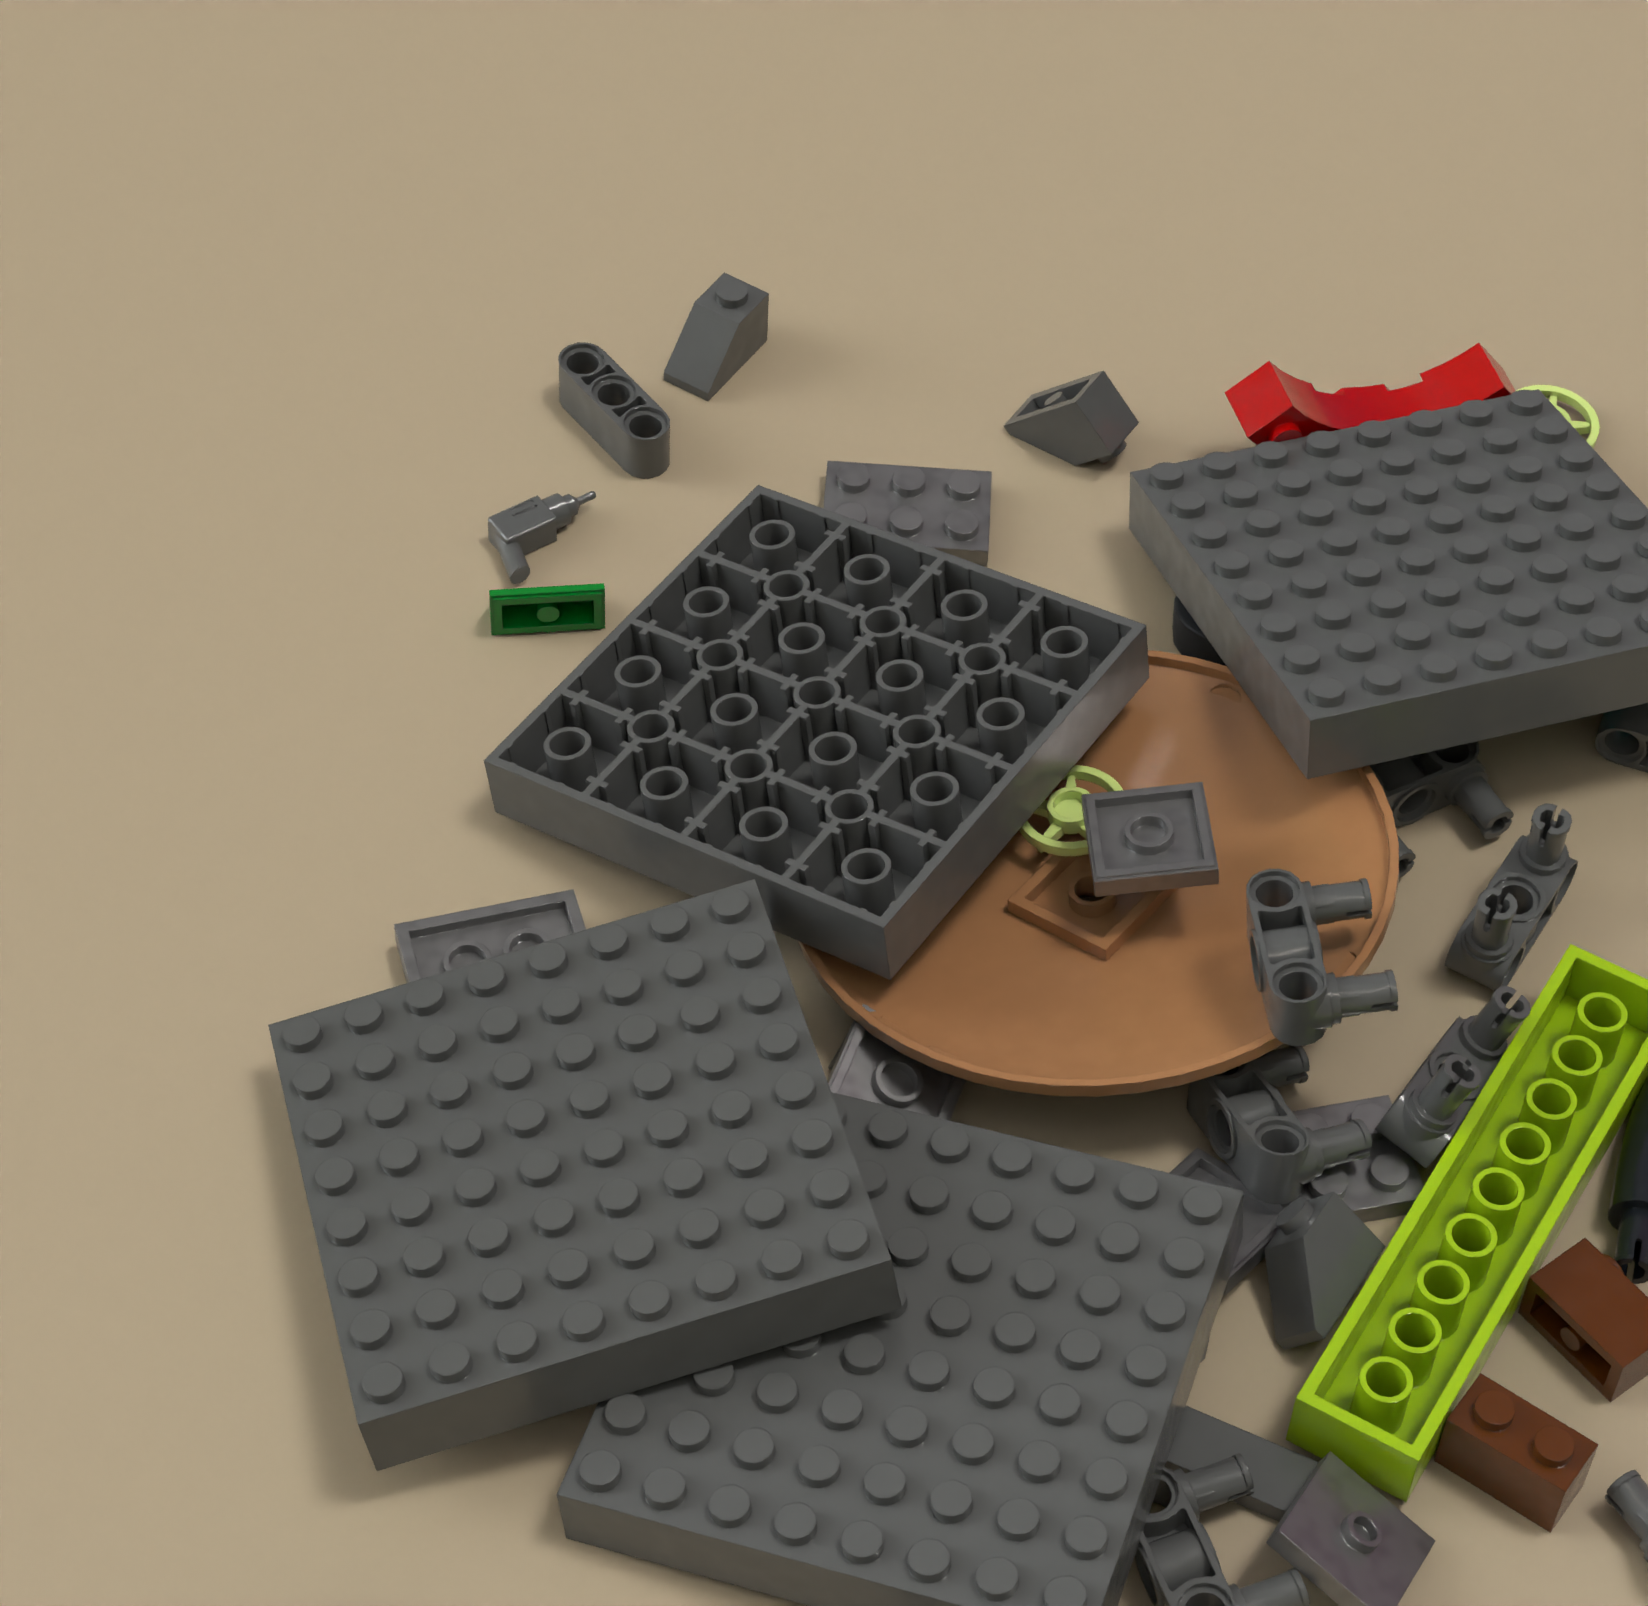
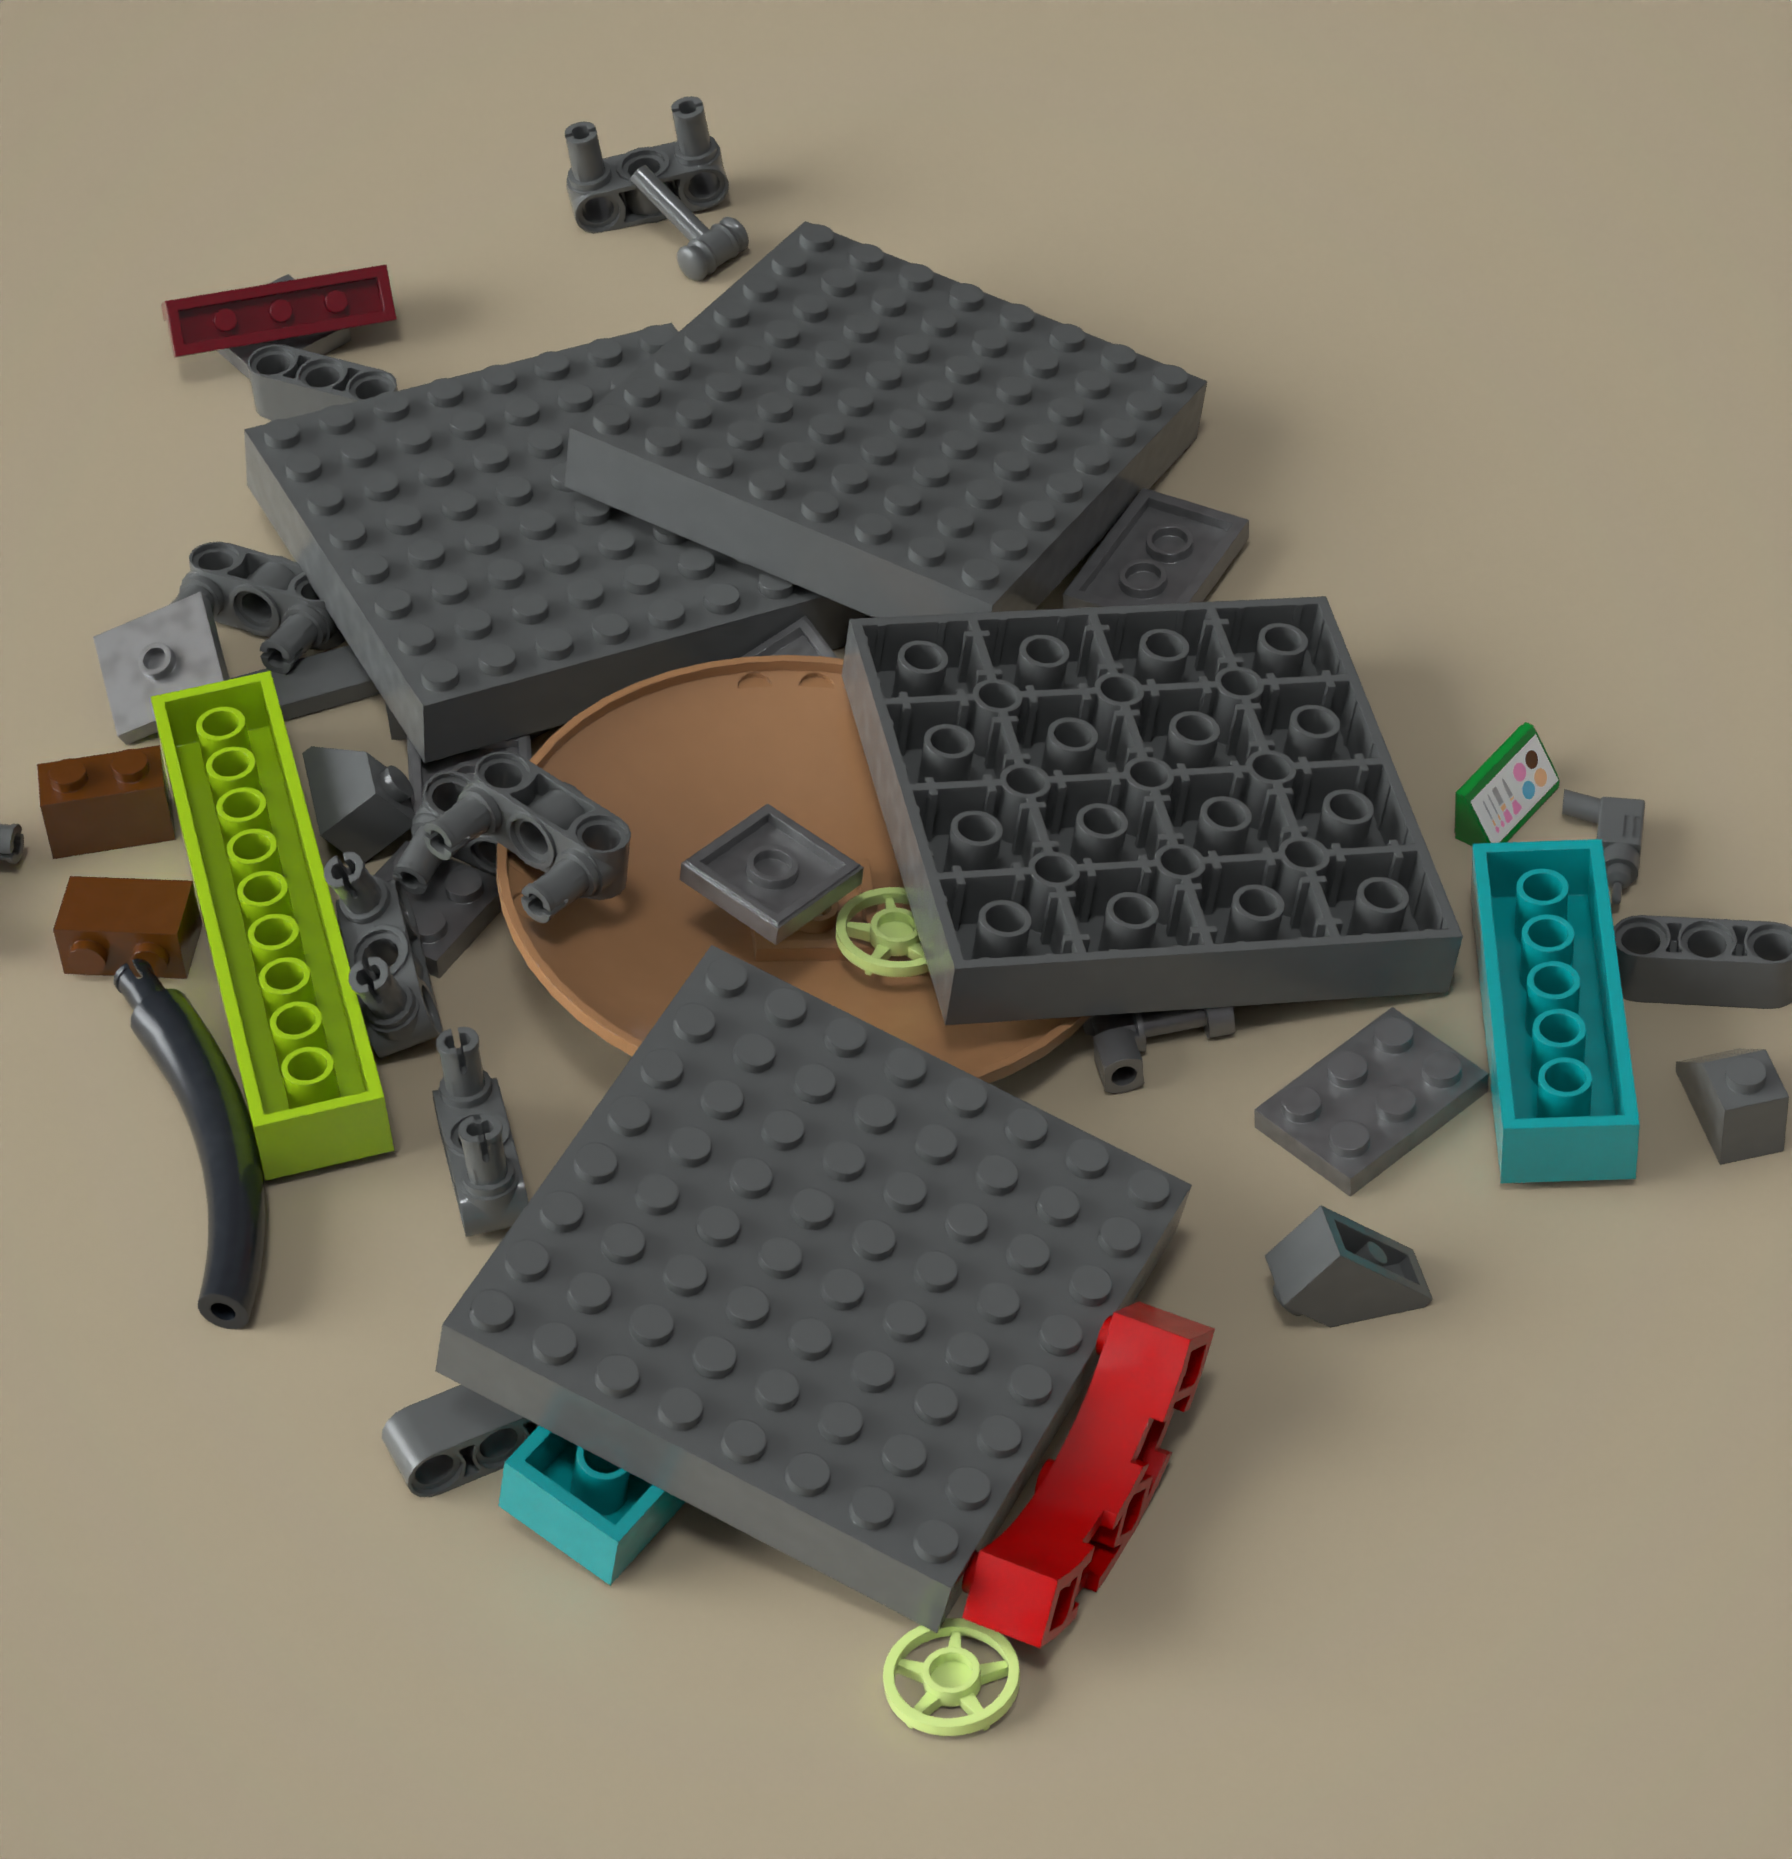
camera: 140 degrees right, 5 degrees down
(756, 428) = (1553, 1012): none -> teal brick

